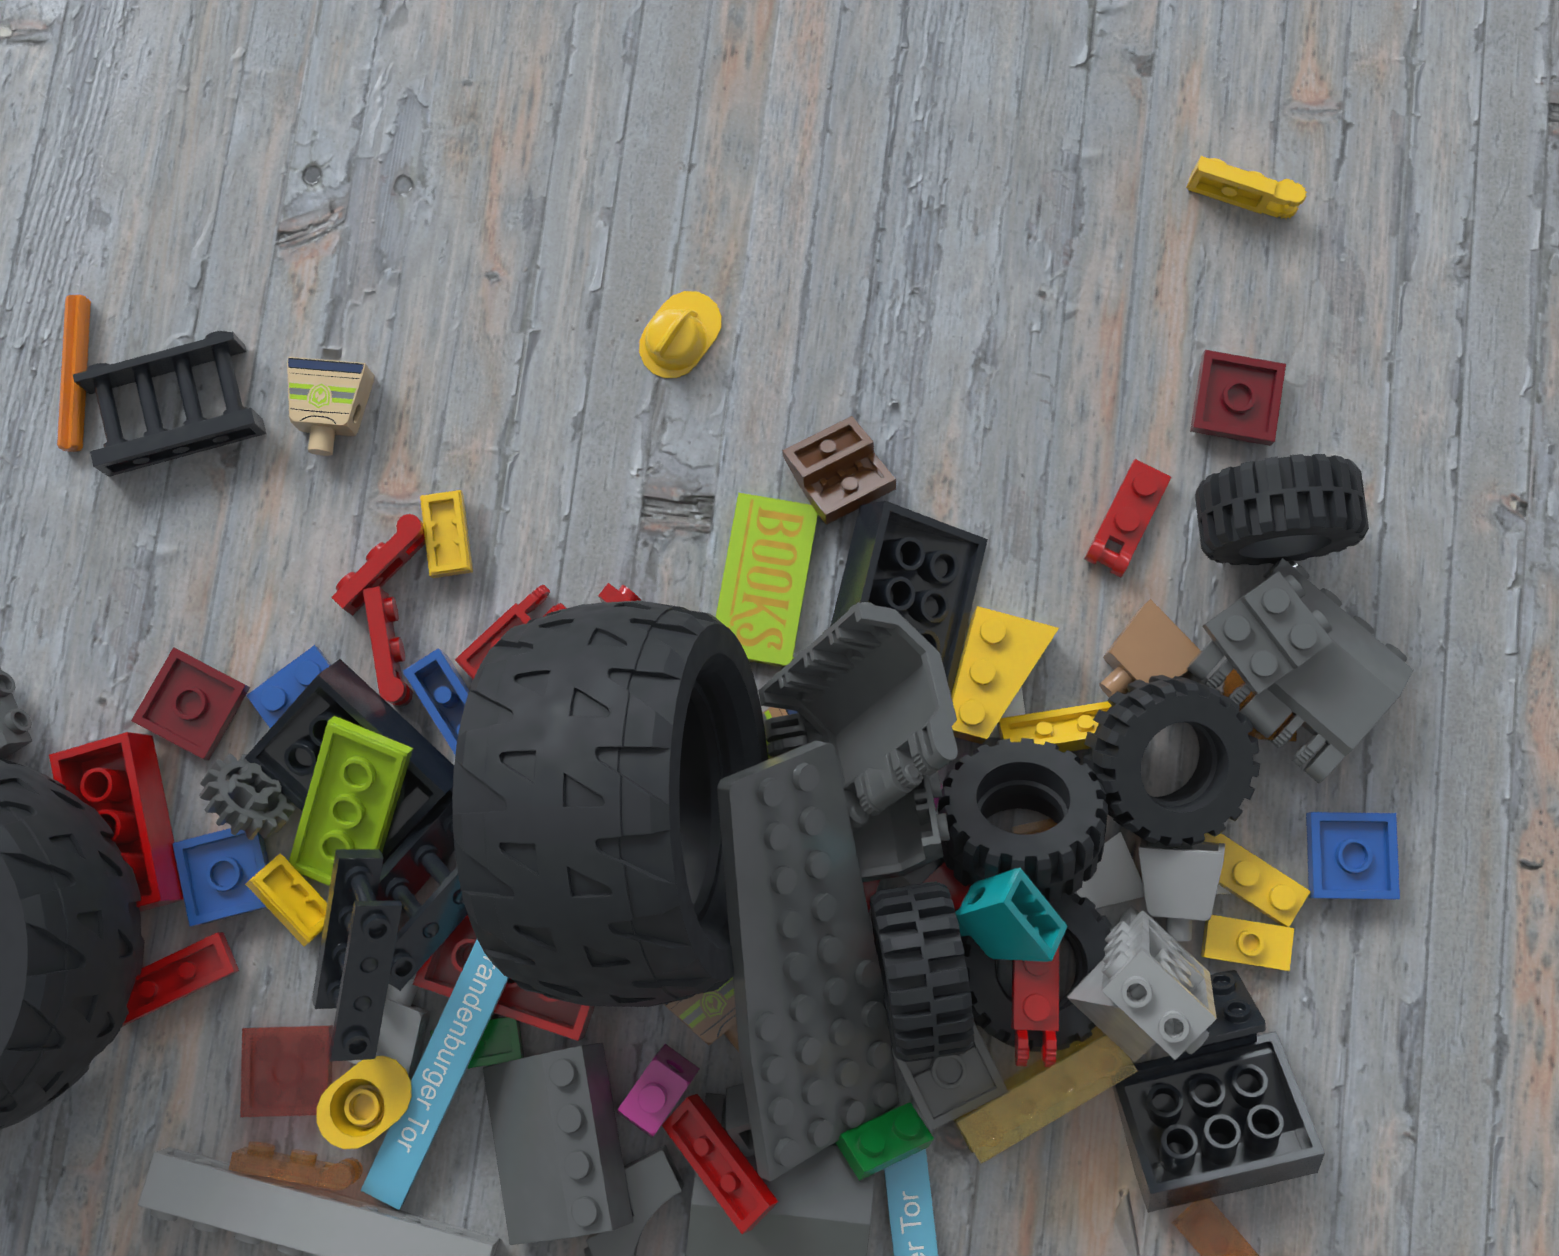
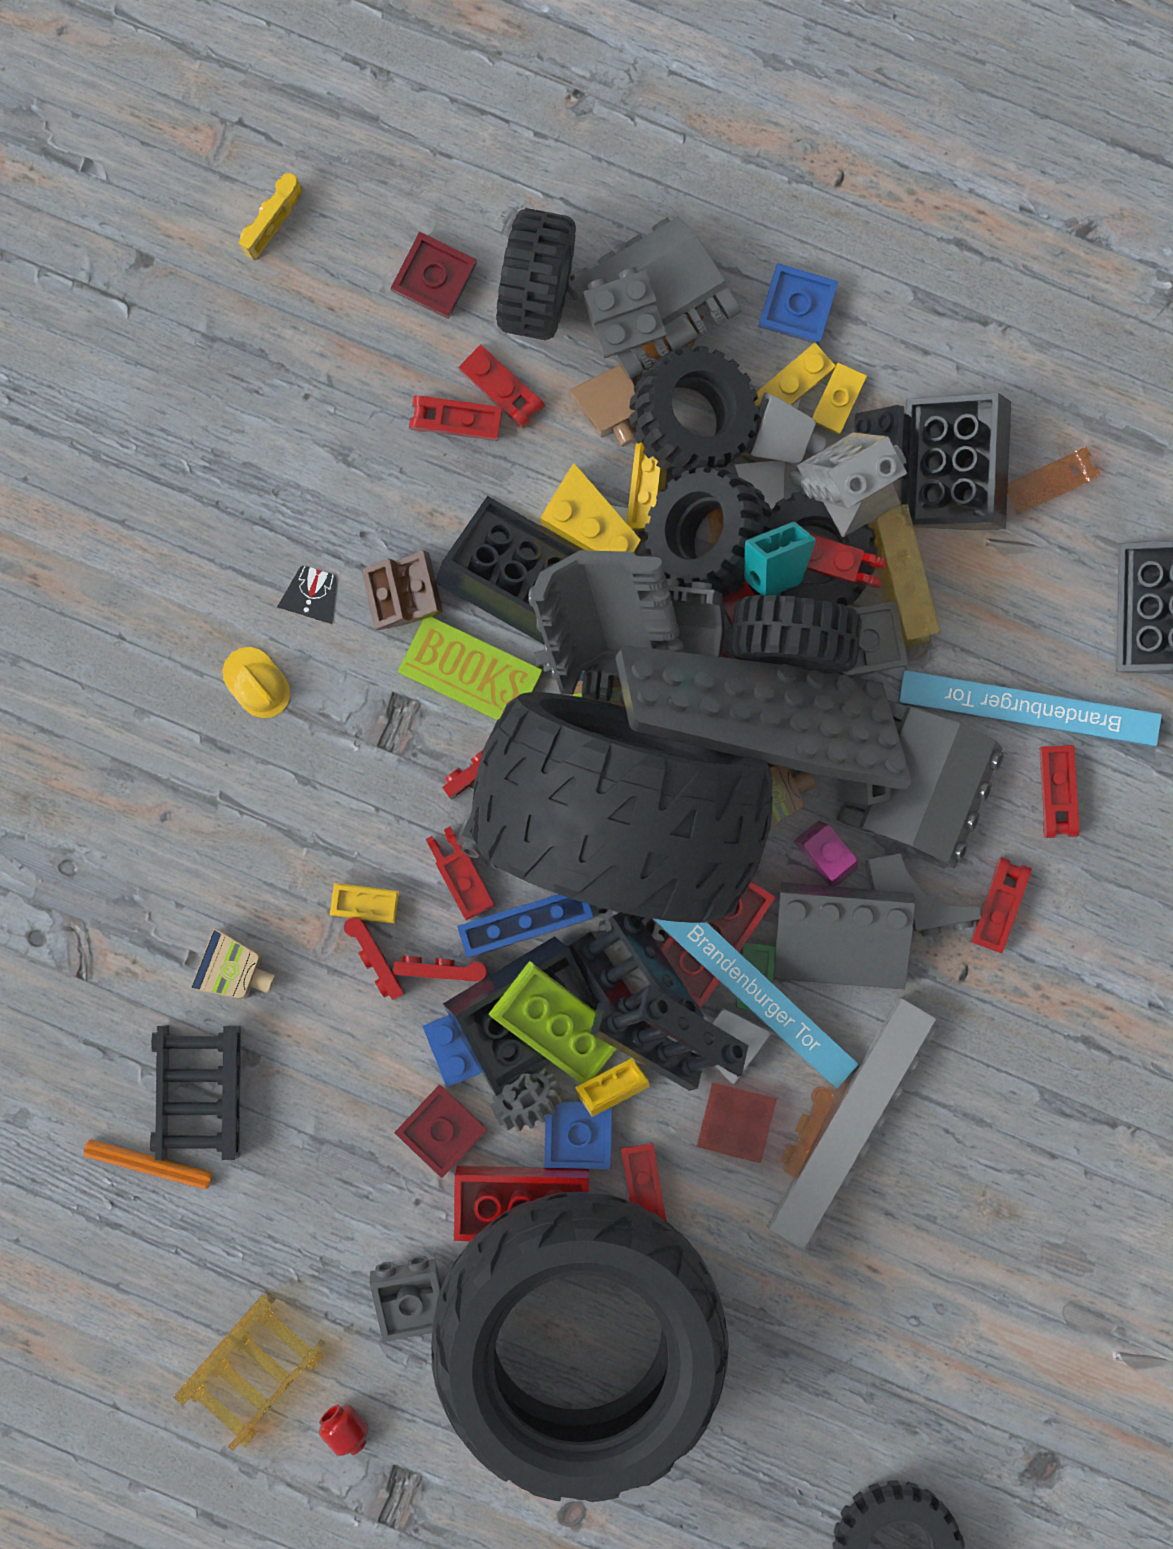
camera: 75 degrees left, 5 degrees up
(364, 1102) = (776, 1066): yellow piece -> none
(719, 1163) = (889, 817): red plate -> none
(804, 367) = (311, 594): none -> black sticker
(884, 1141) = (906, 698): green plate -> none
(1071, 475) = (456, 418): none -> red plate

